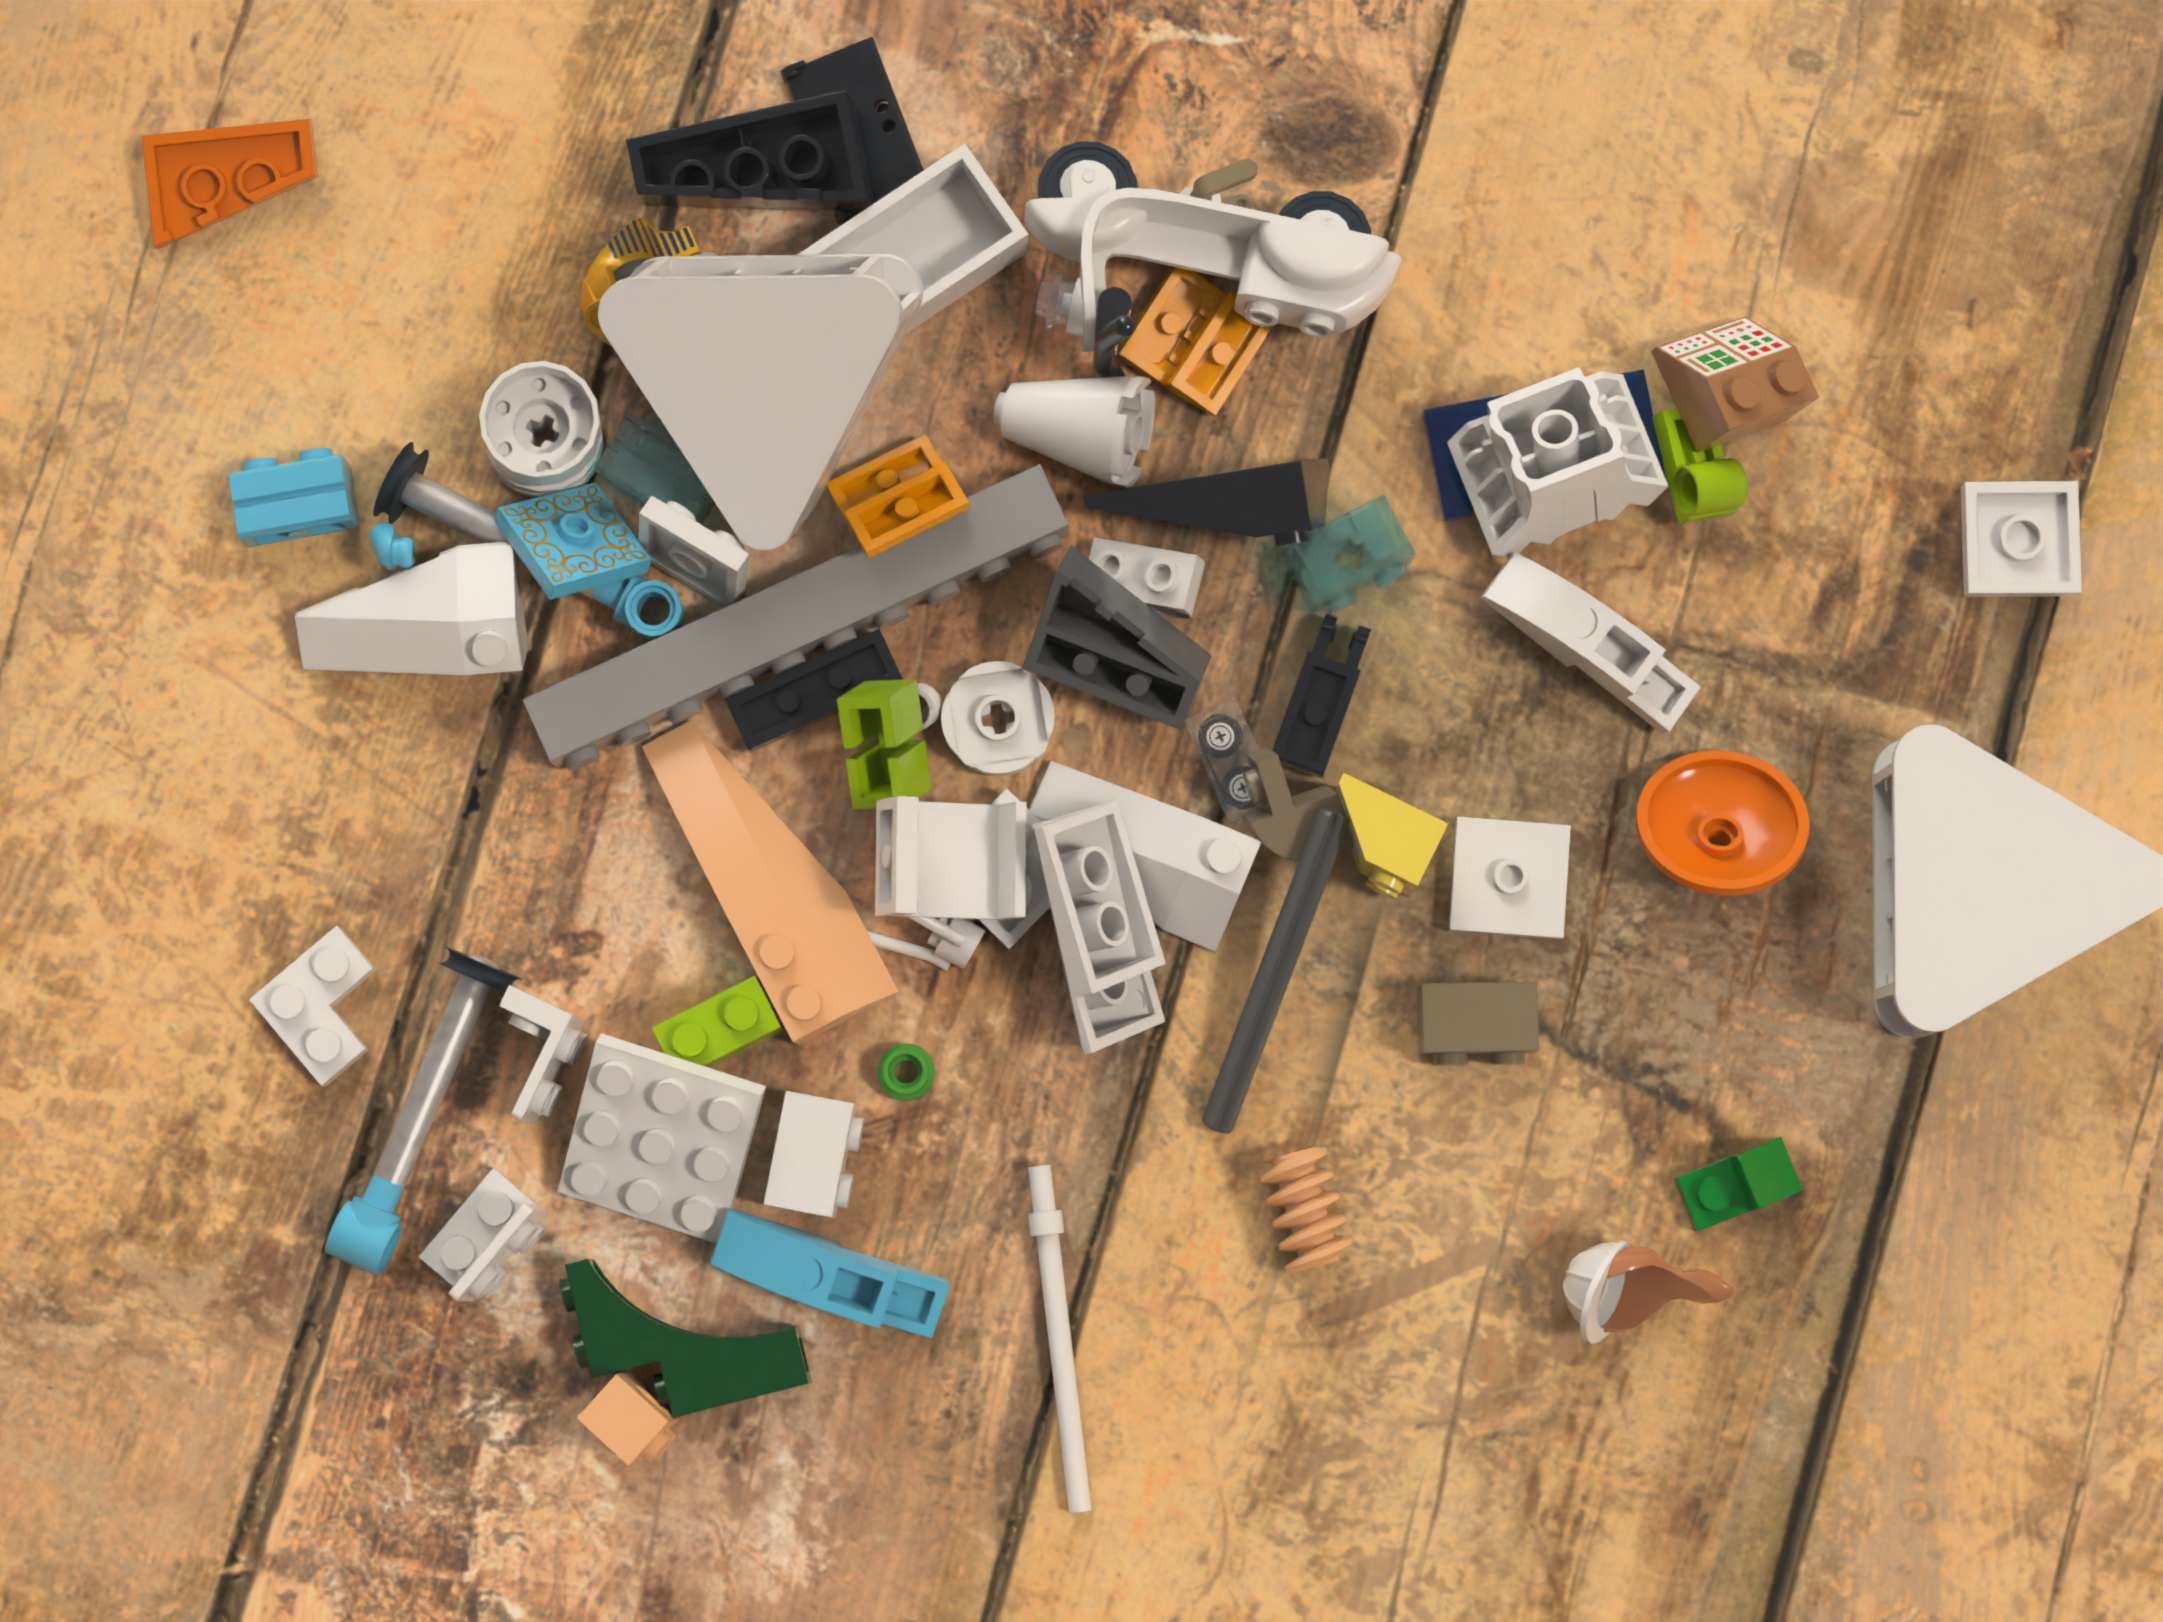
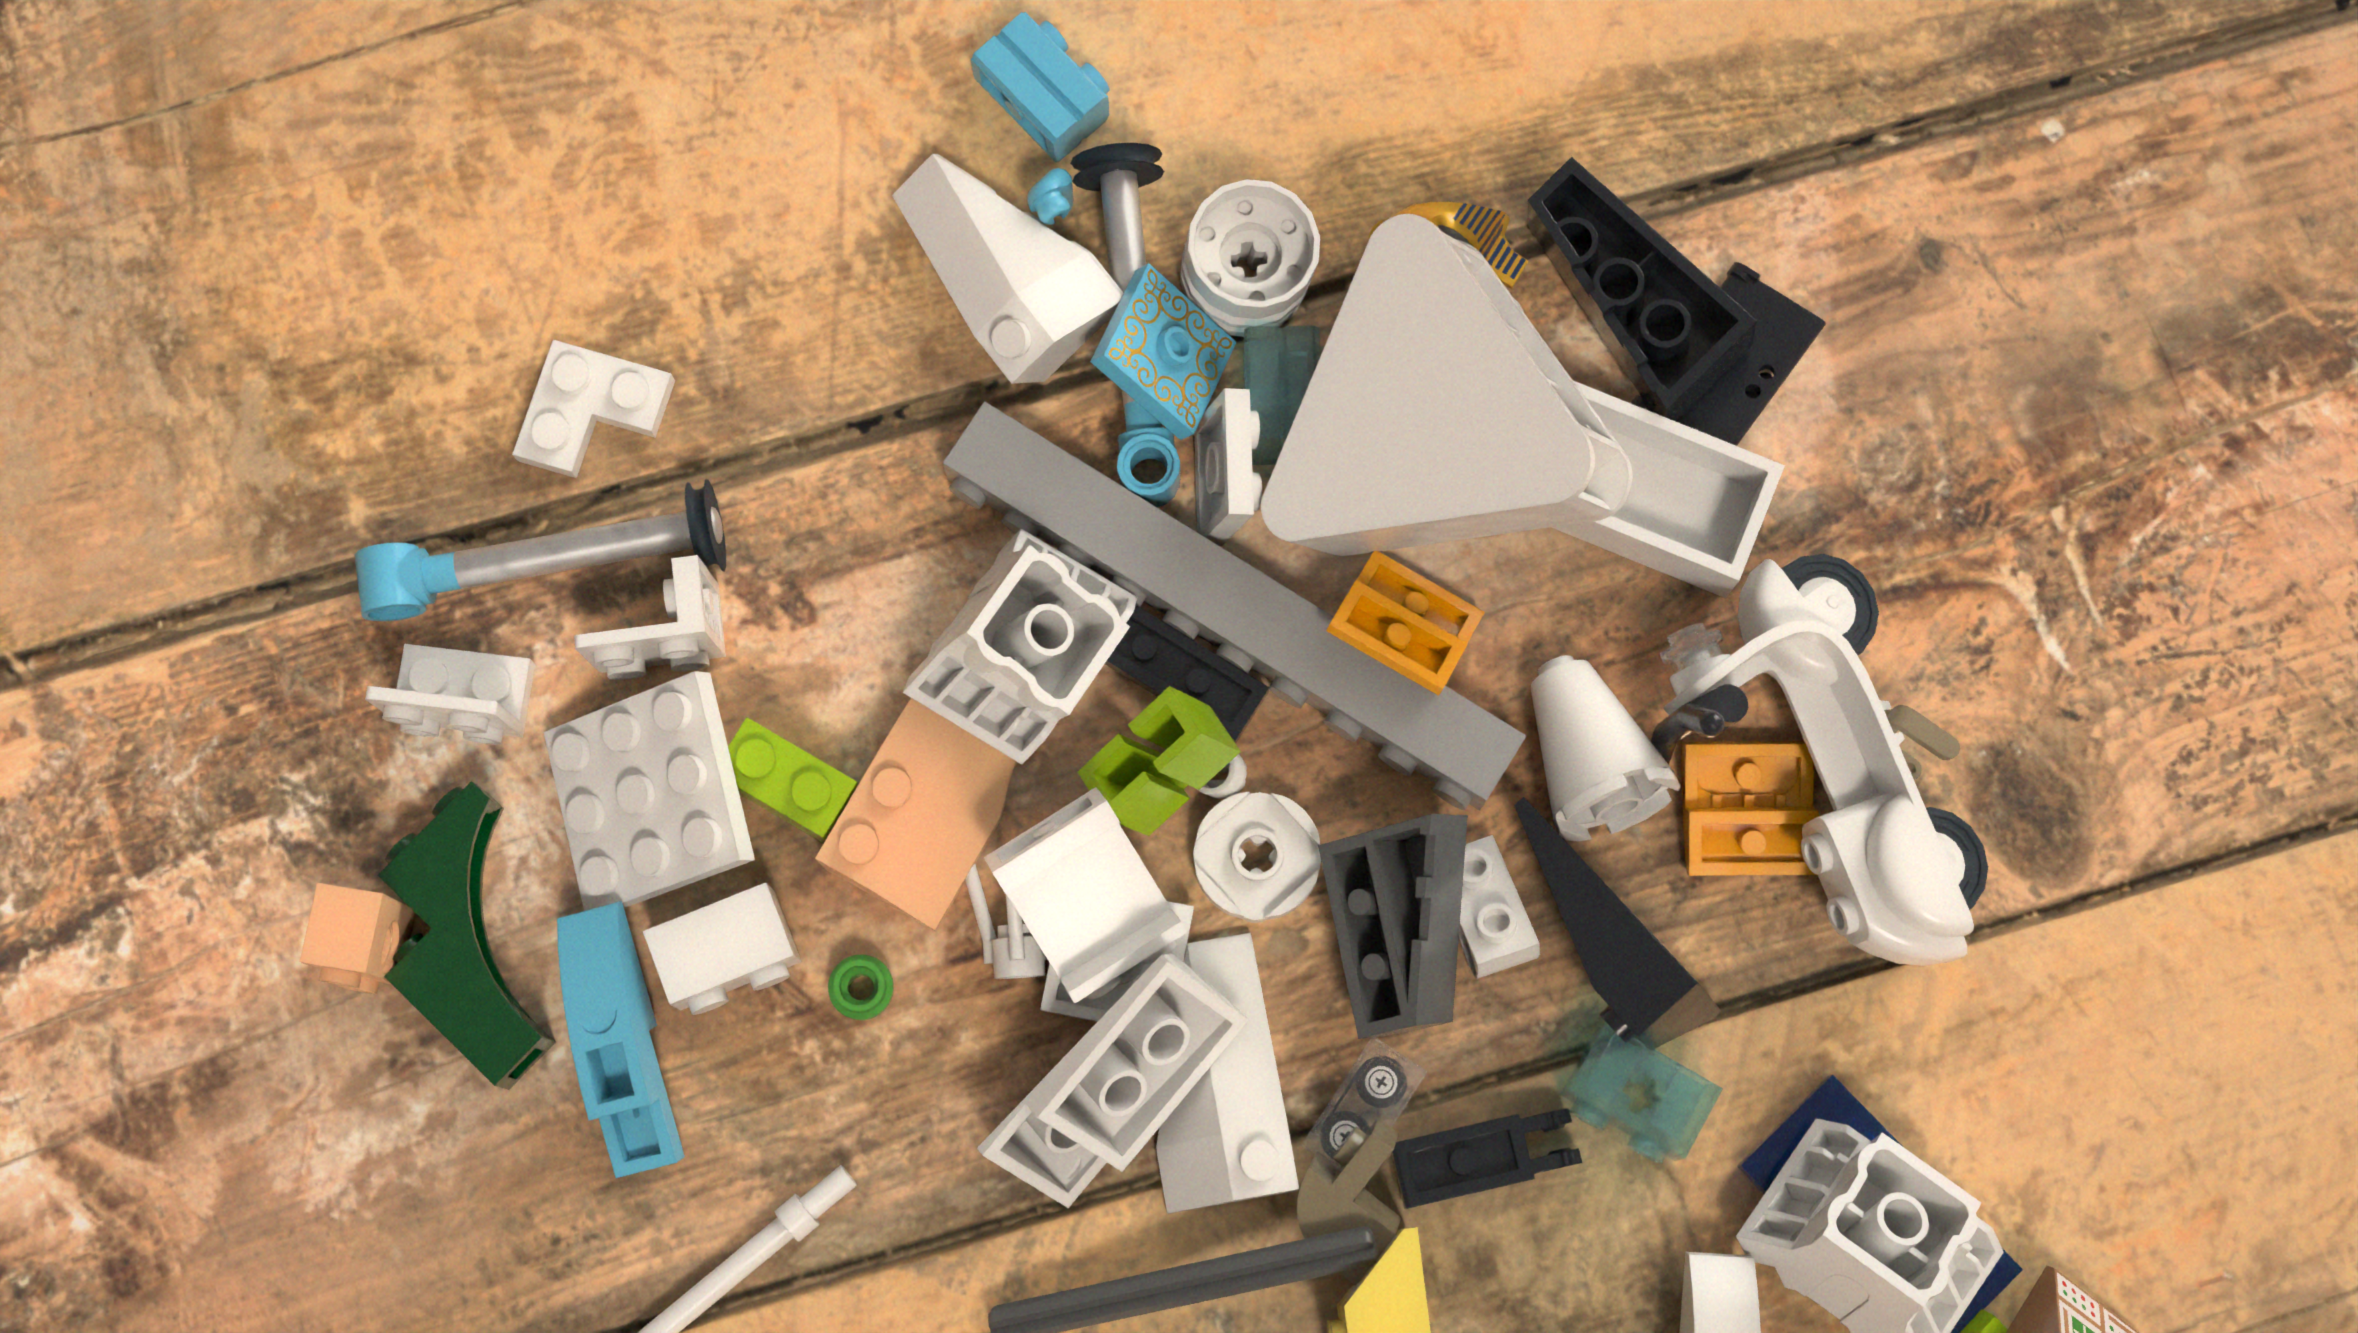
camera: 55 degrees right, 5 degrees down
(733, 787) = (1023, 647): none -> white slope

